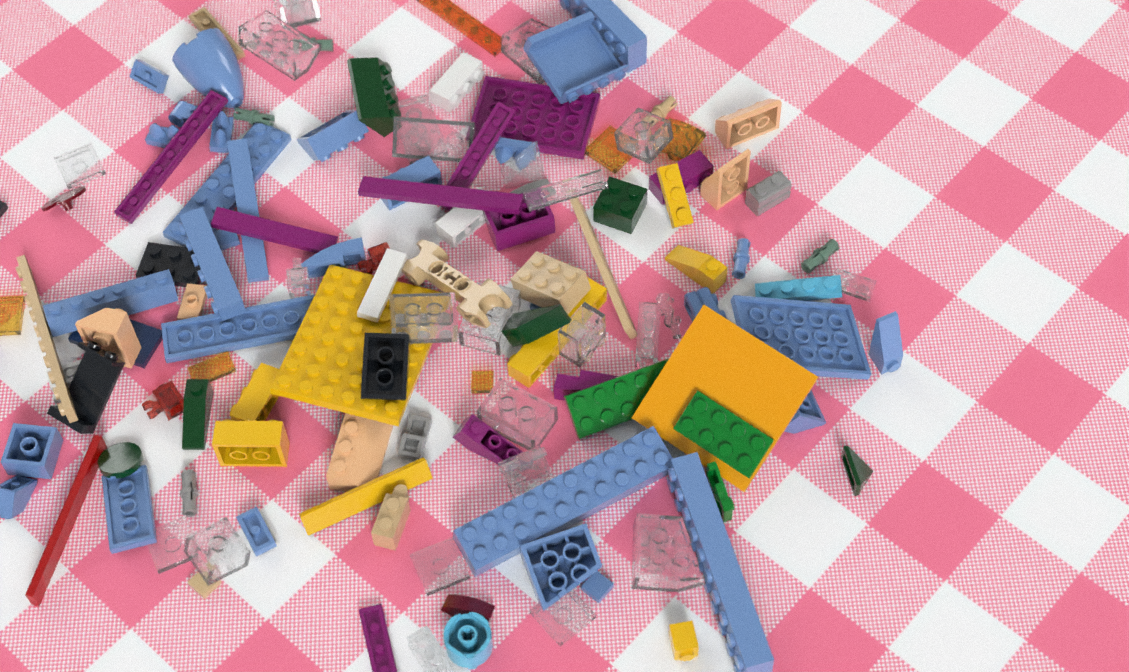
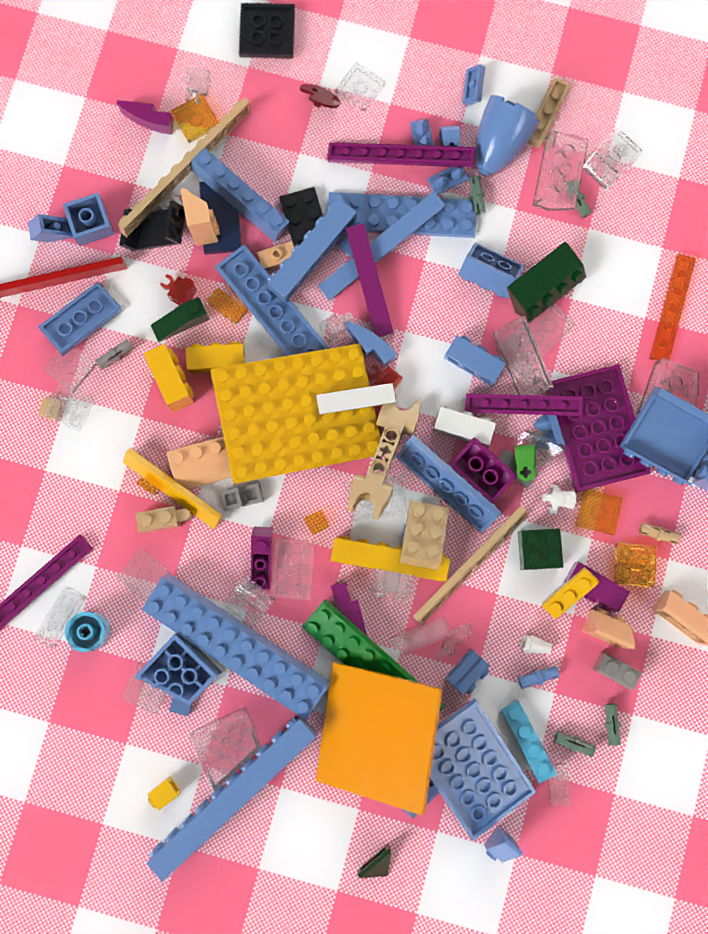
camera: 60 degrees right, 25 degrees up
(120, 460) = (115, 287): tile -> none
(256, 531) = (106, 423): medium blue plate -> none
(349, 517) = (148, 486): none -> clear yellow tile
(385, 366) = (272, 448): black slope -> none
(424, 316) = (335, 451): clear brick -> none
(441, 195) = (466, 398): magenta tile -> none
(456, 82) = (600, 343): white brick -> none
(464, 604) = (115, 615): dark red slope -> none
(514, 246) = (448, 484): none -> medium blue plate
(528, 175) = (526, 458): none -> bright green piece
(533, 324) = (374, 542): dark green slope -> none
(565, 190) = (523, 500): clear tile -> none
(585, 165) = (559, 498): none -> white piece
(643, 135) = (618, 537): clear brick -> none
(699, 267) = (511, 643): yellow slope -> none
(710, 245) = (533, 644): none -> white cone
(719, 492) = (306, 758): green wing -> none
(723, 434) = (347, 748): green piece -> none
(817, 219) = (612, 724): none -> sand green pin

